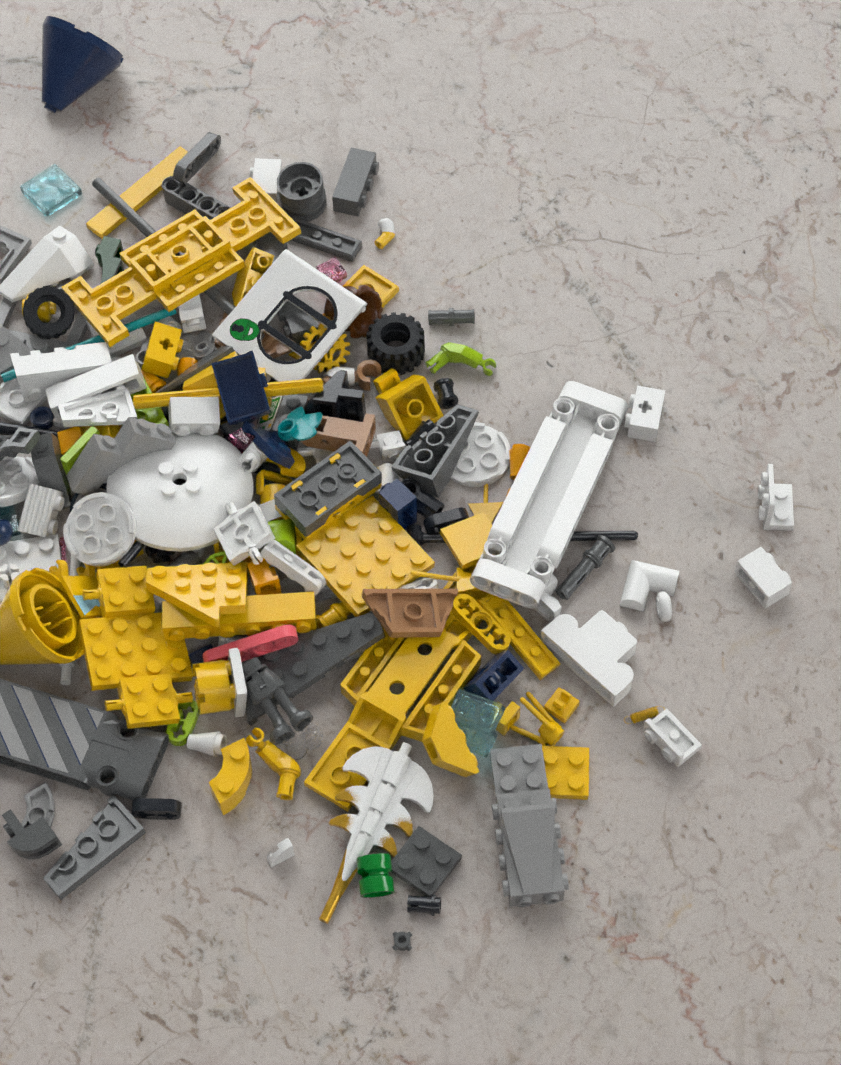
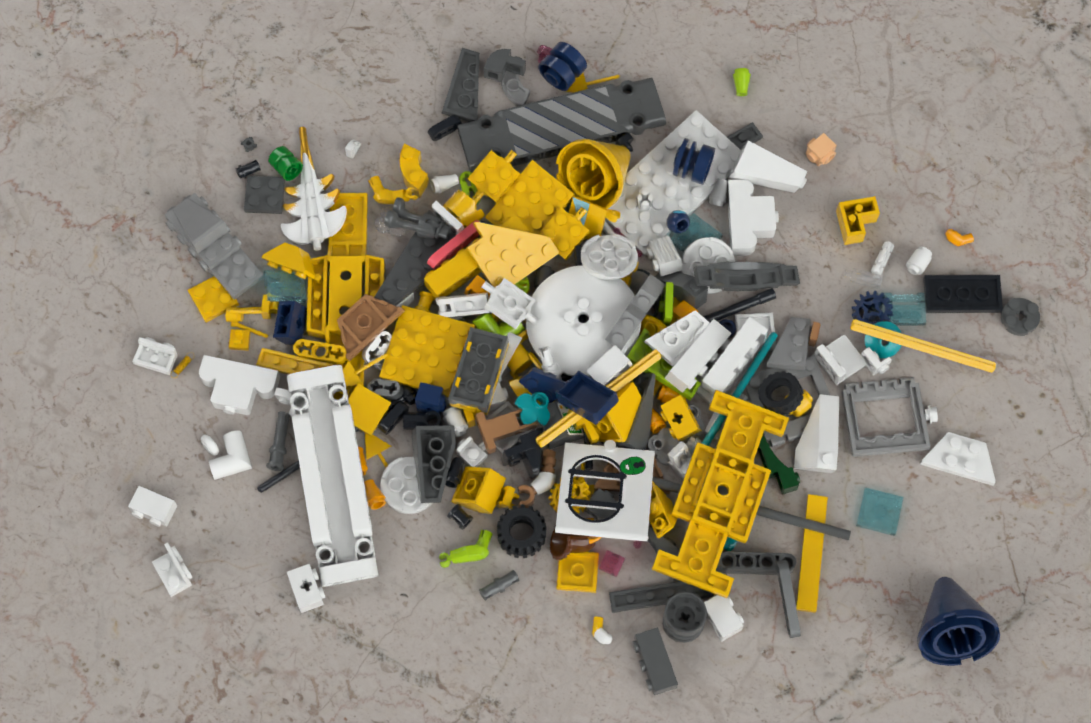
camera: 145 degrees right, 10 degrees up
(440, 550) = (386, 385): none -> dark grey beam

